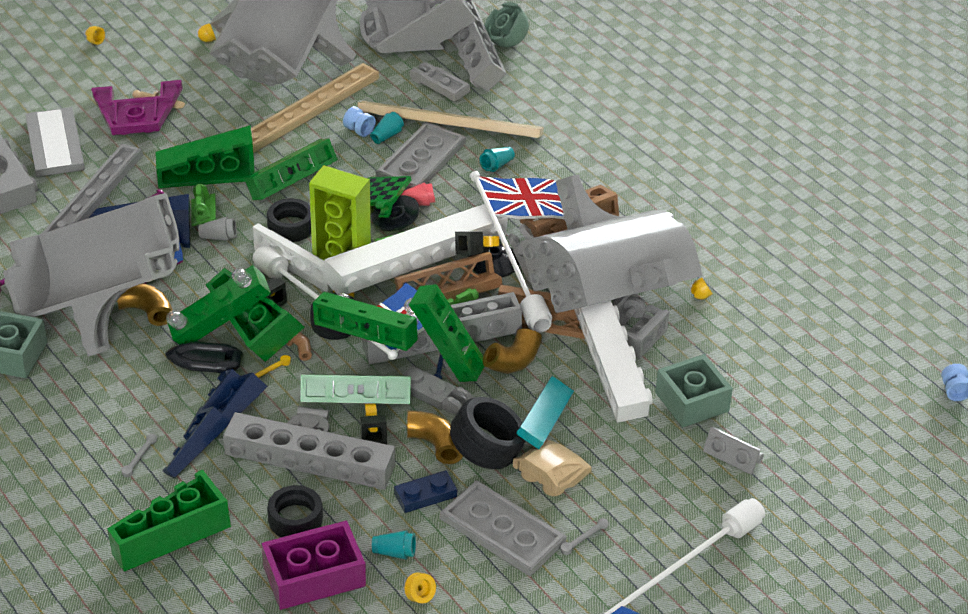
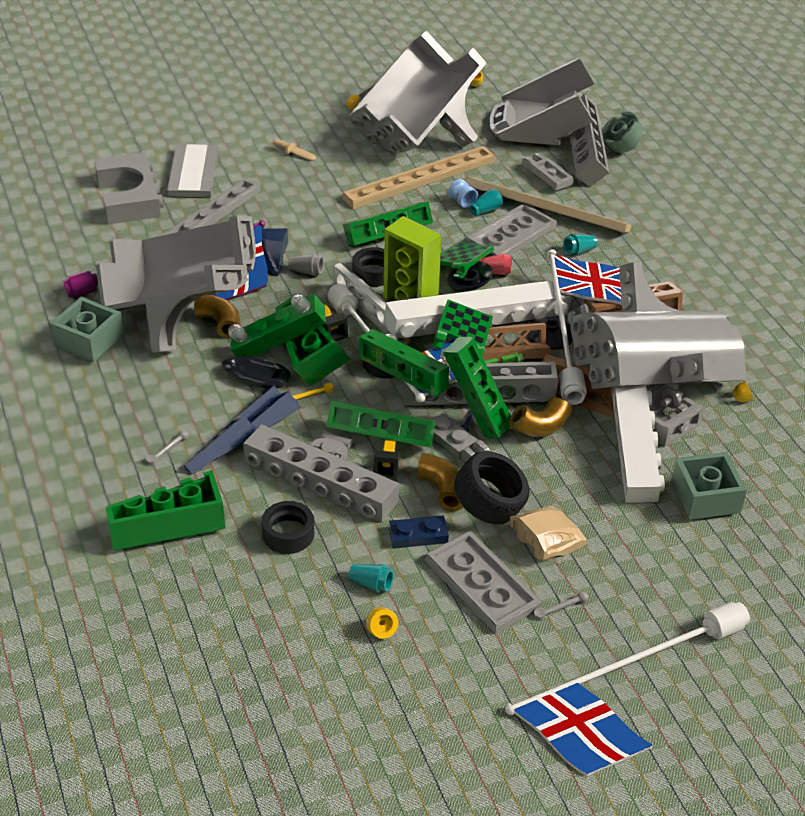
camera: 15 degrees right, 0 degrees up
(95, 38) = (259, 93): yellow hinge -> none
(136, 114) = (273, 158): magenta wing -> none
(202, 206) = (300, 241): bright green hinge -> none
(207, 161) = (316, 204): green wedge -> none
(303, 345) = (348, 377): medium nougat arm -> none
(313, 564) = (286, 579): magenta brick -> none
(408, 269) = (462, 322): none -> green flag
(473, 242) = (532, 311): pearl dark grey piece -> none
(545, 412) = (553, 479): teal tile -> none
(732, 450) = (733, 551): light grey hinge -> none

